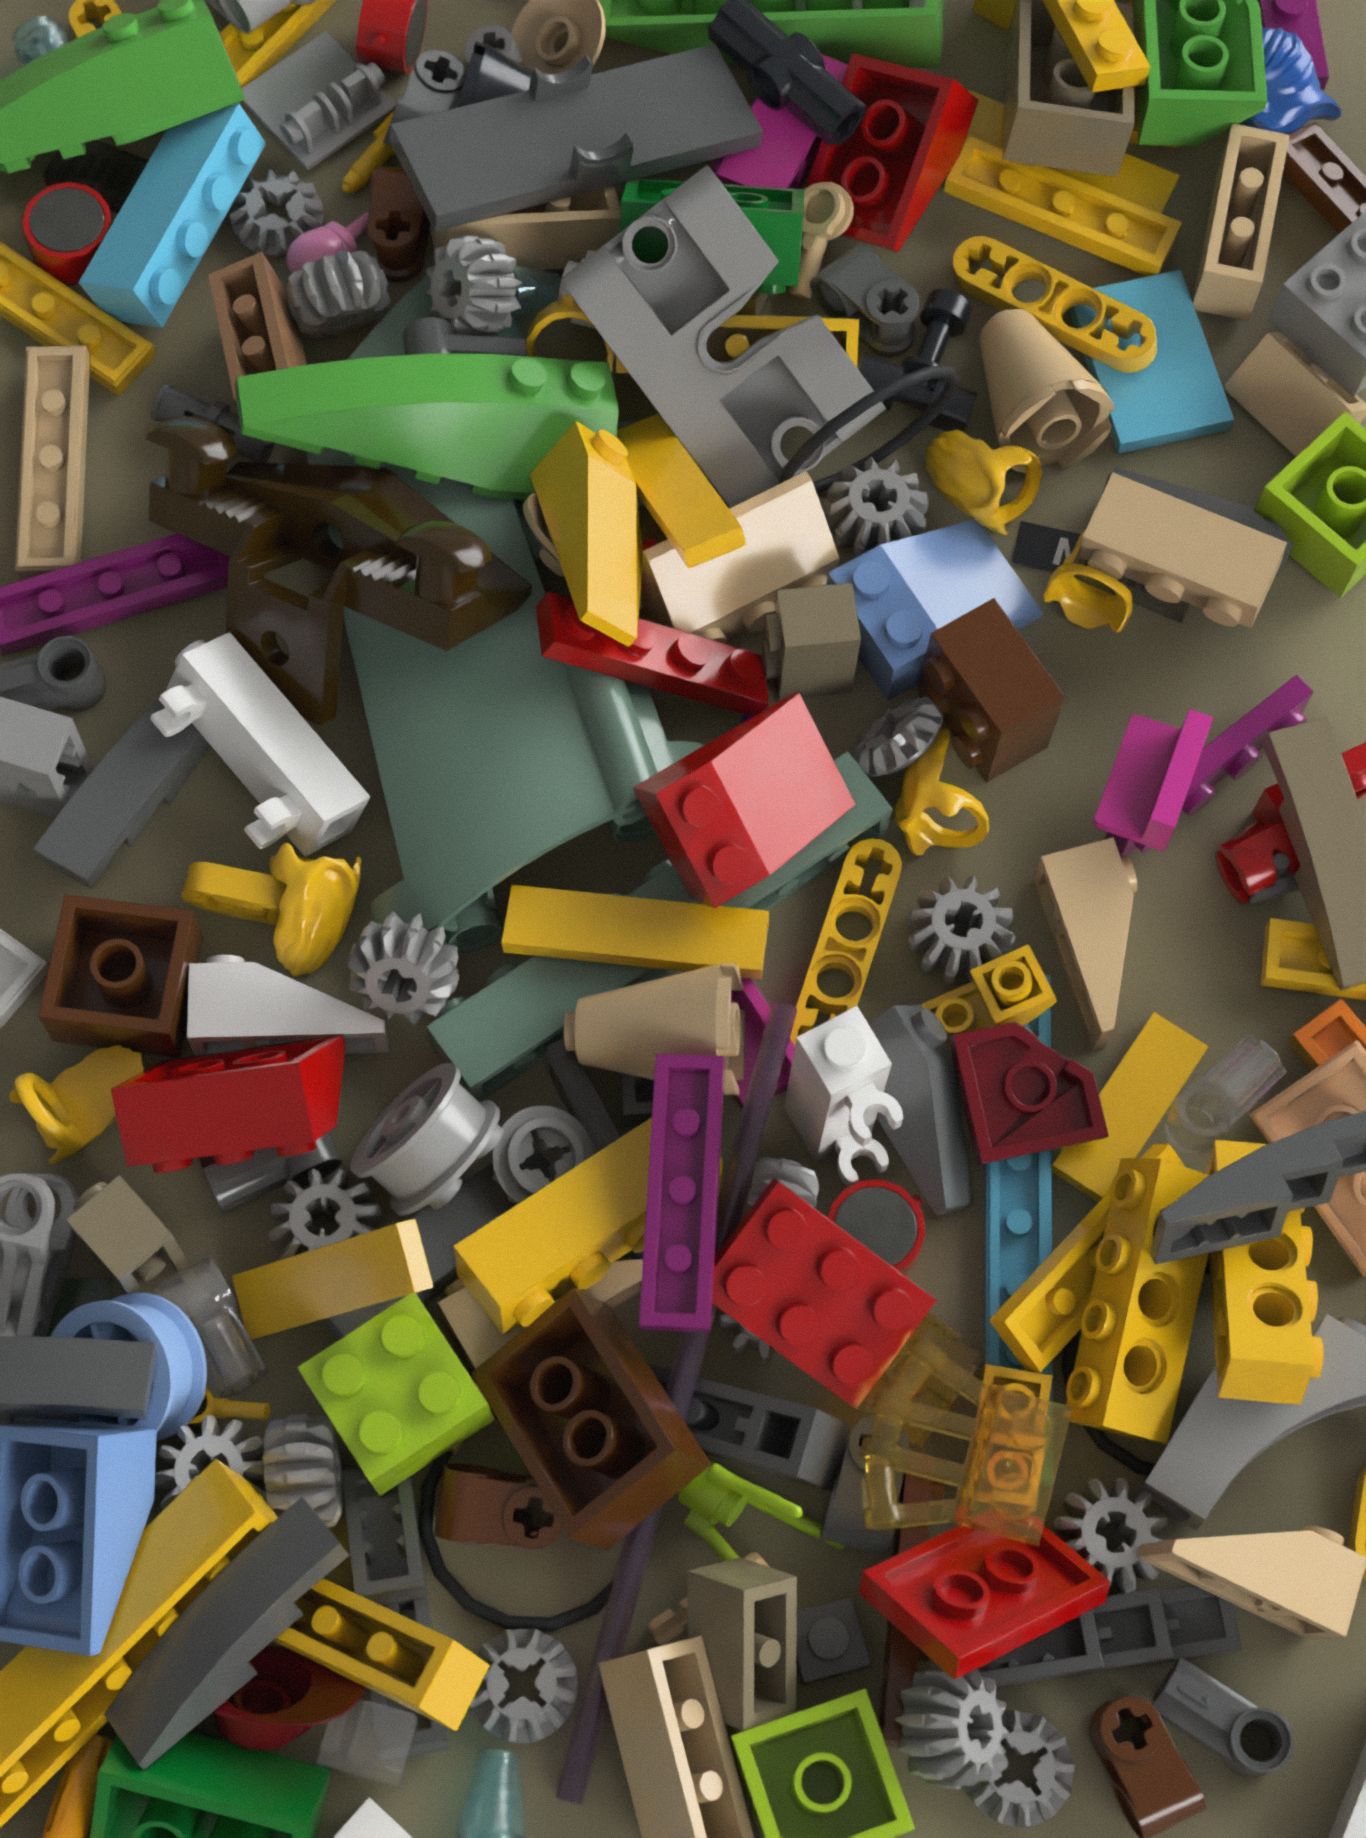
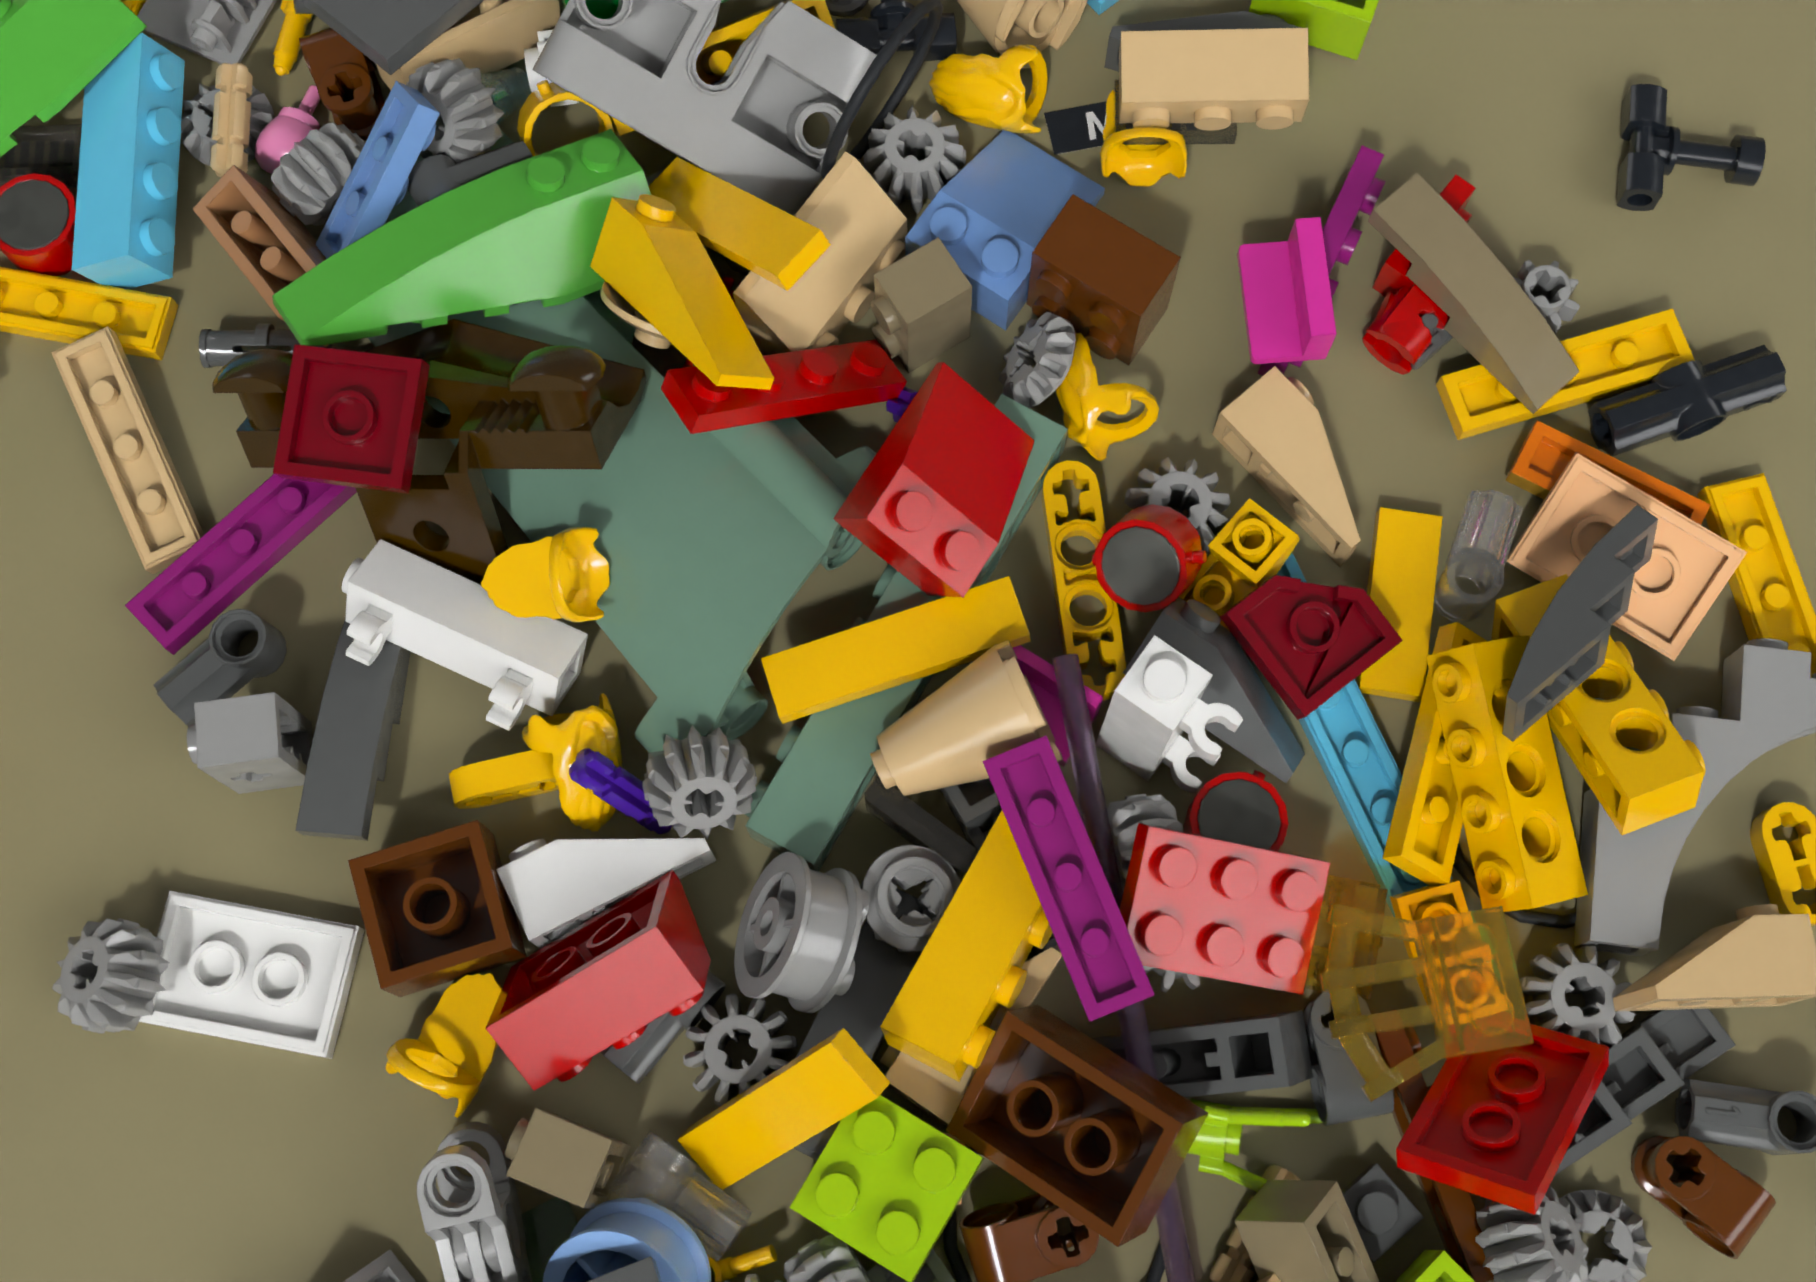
camera: 20 degrees left, 5 degrees up
(252, 512) = (351, 418): none -> dark red plate
(281, 210) = (231, 118): none -> tan axle
(328, 941) = (615, 787): none -> dark purple axle
(361, 730) = (551, 577): none -> yellow piece
(389, 309) = (382, 169): none -> medium blue plate
(907, 955) = (1148, 558): none -> piece

